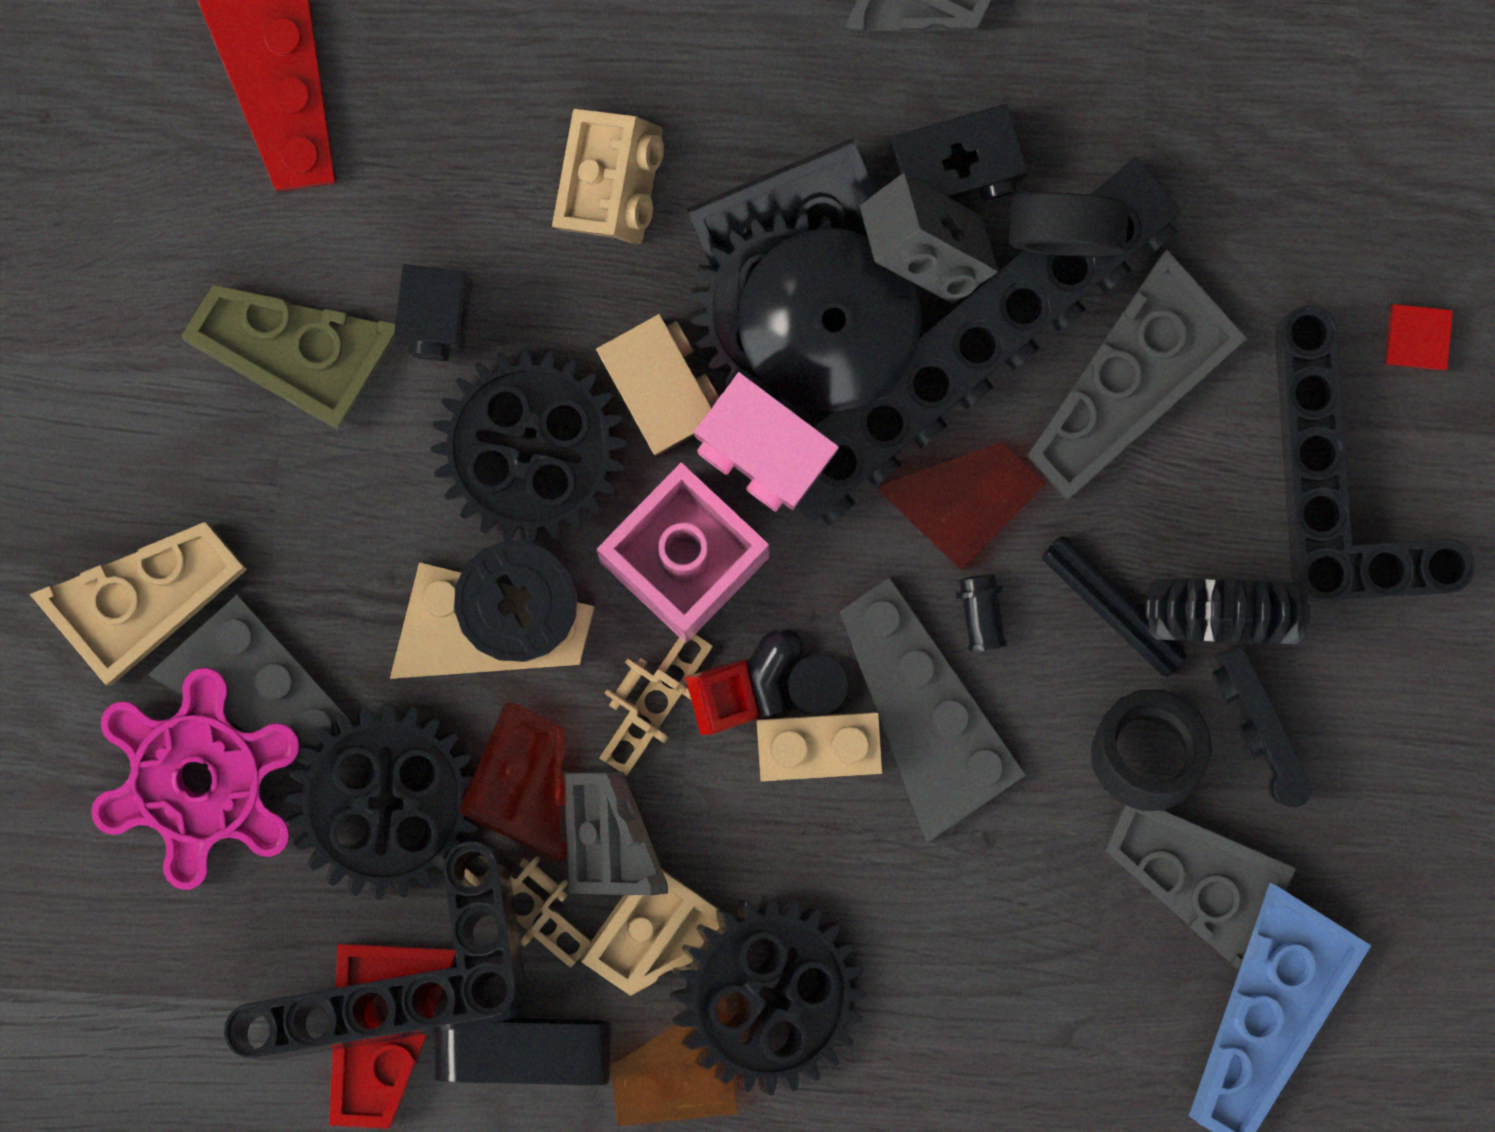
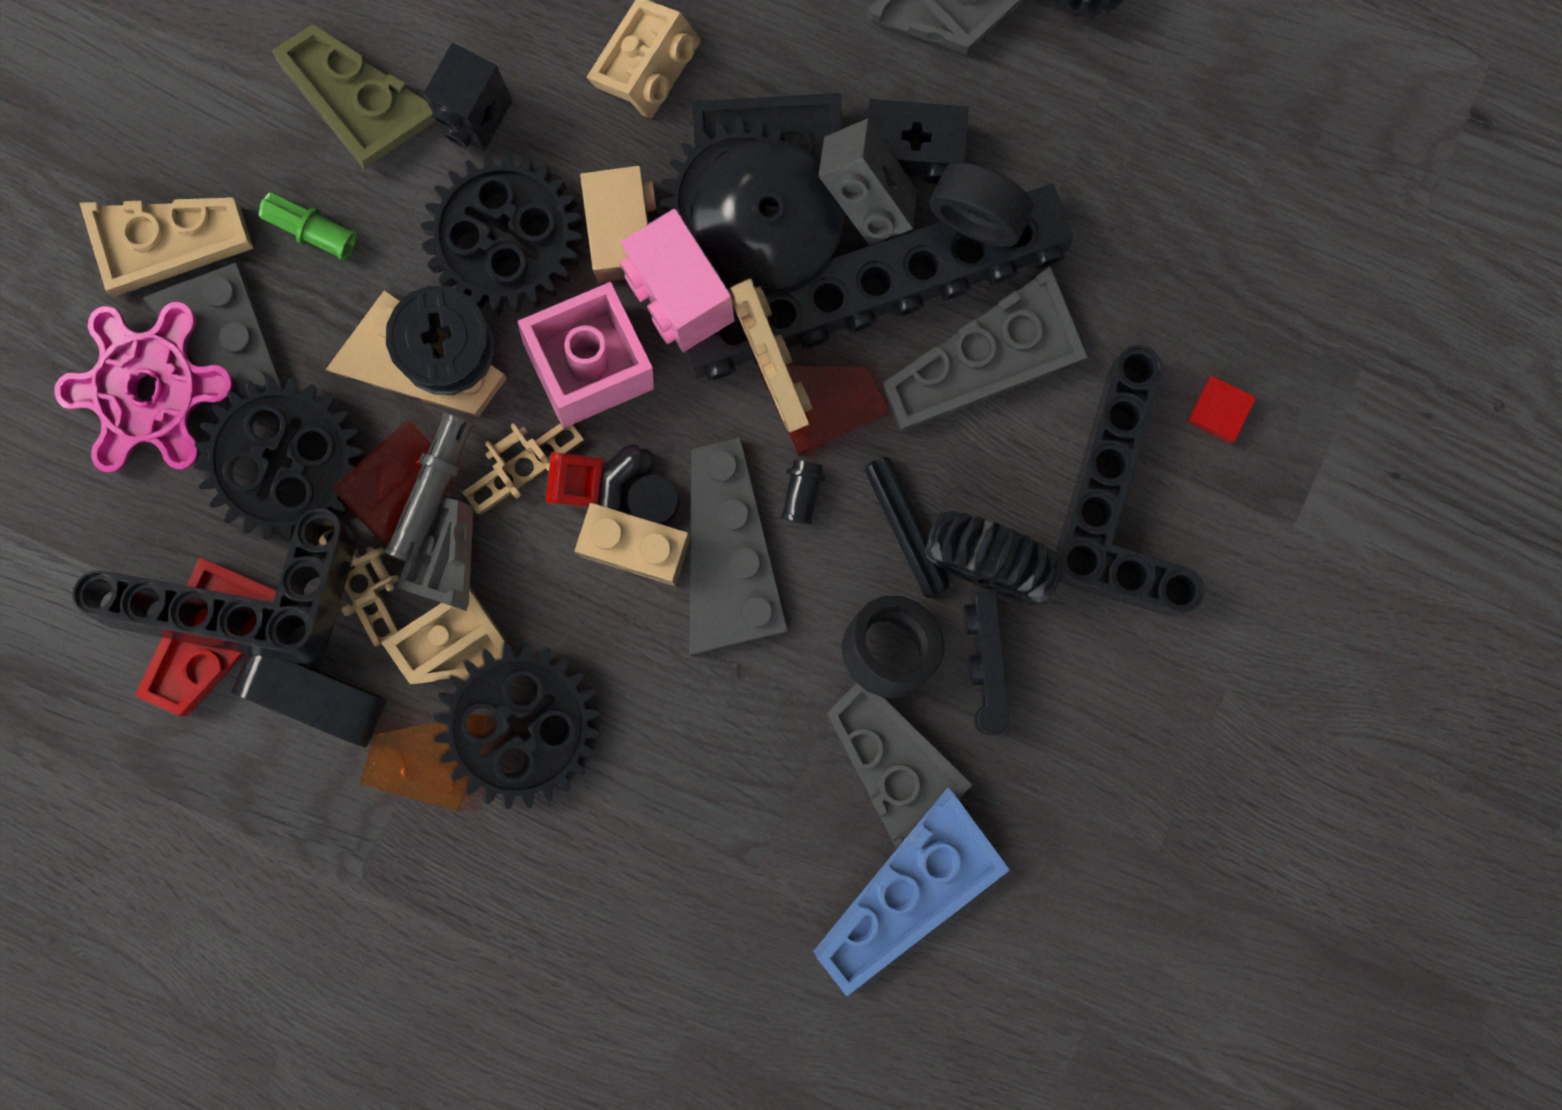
camera: 20 degrees right, 5 degrees down
(299, 520) = (308, 225): none -> bright green axle
(566, 765) = (429, 488): none -> dark grey pin
(895, 479) = (770, 354): none -> tan wing

